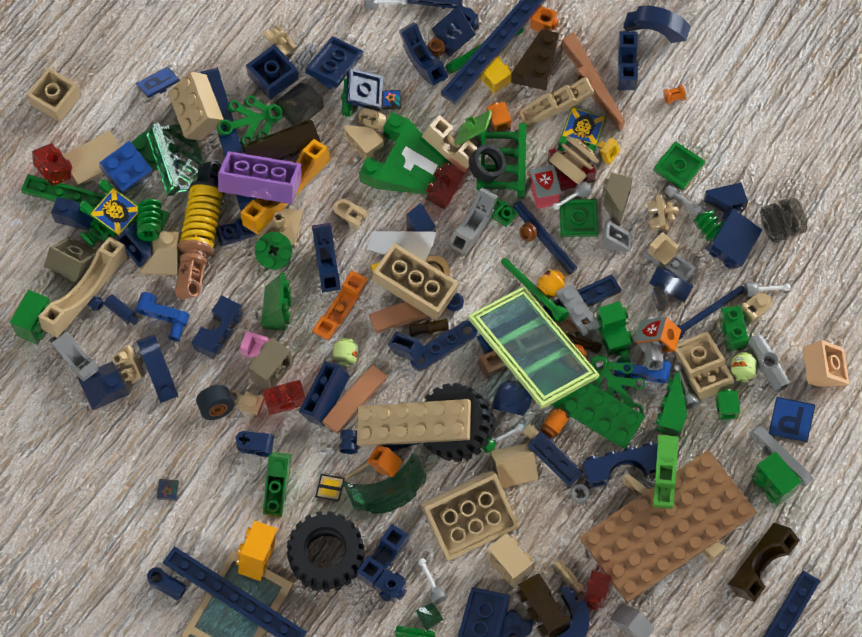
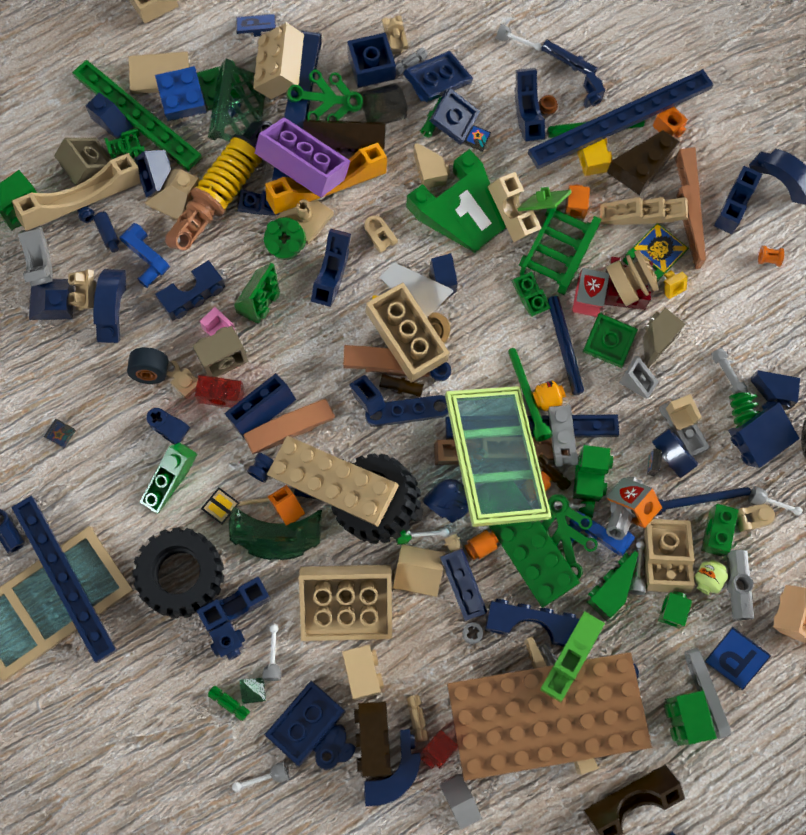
camera: 20 degrees right, 5 degrees up
(52, 164) = (113, 59): clear red brick -> none
(113, 211) = (147, 130): flag -> none
(149, 219) = (174, 153): green piece -> none
(256, 550) = (107, 539): light orange brick -> none
(341, 306) = (323, 325): orange slope -> none
(345, 352) = (303, 373): yellowish green head -> none
(372, 116) = (447, 148): tan beam -> none
(451, 177) = (498, 240): clear red brick -> none
(454, 31) = (573, 95): dark blue piece -> none
(473, 226) = (492, 304): light grey arch -> none
(496, 155) = (554, 239): black tyre -> none
(528, 232) = (550, 332): dark orange plate -> none
(581, 190) = (626, 313): hinge -> none
(659, 206) = (696, 381): tan hips -> none
(679, 165) = (741, 332): green plate -> none

